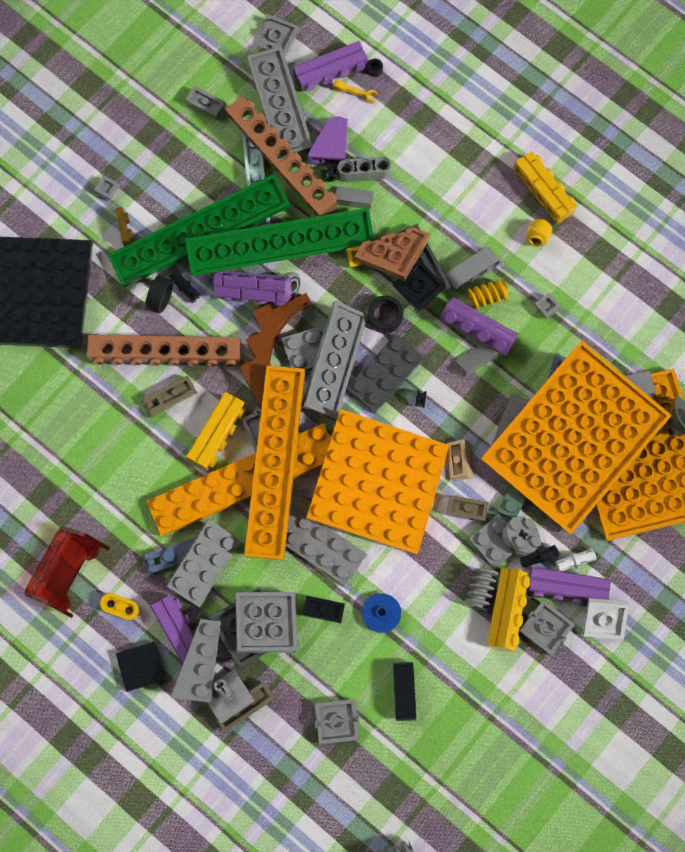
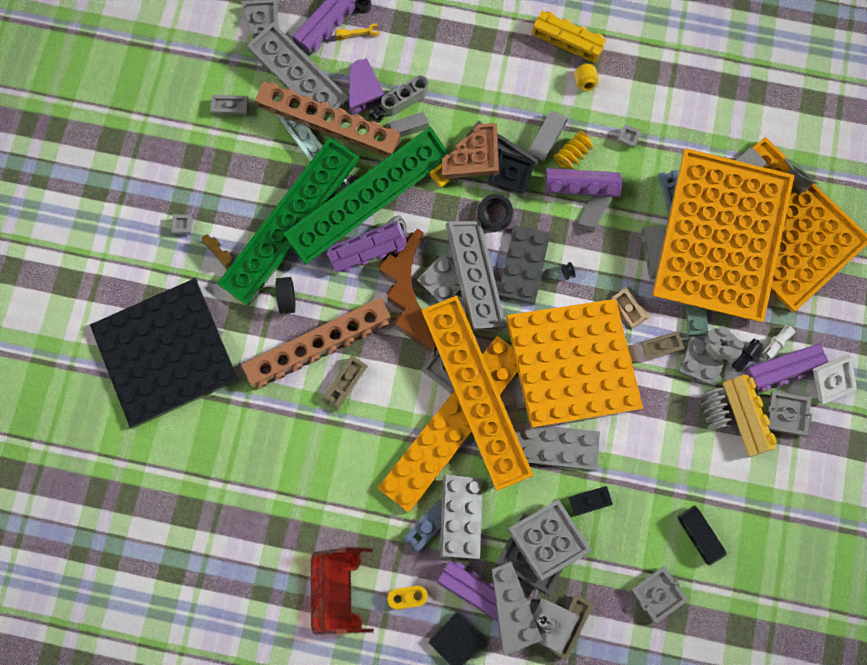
camera: 30 degrees left, 0 degrees up
(184, 285) = (302, 276): black axle -> none
(215, 432) = (405, 393): yellow brick -> none
(379, 623) = (631, 478): blue plate -> none

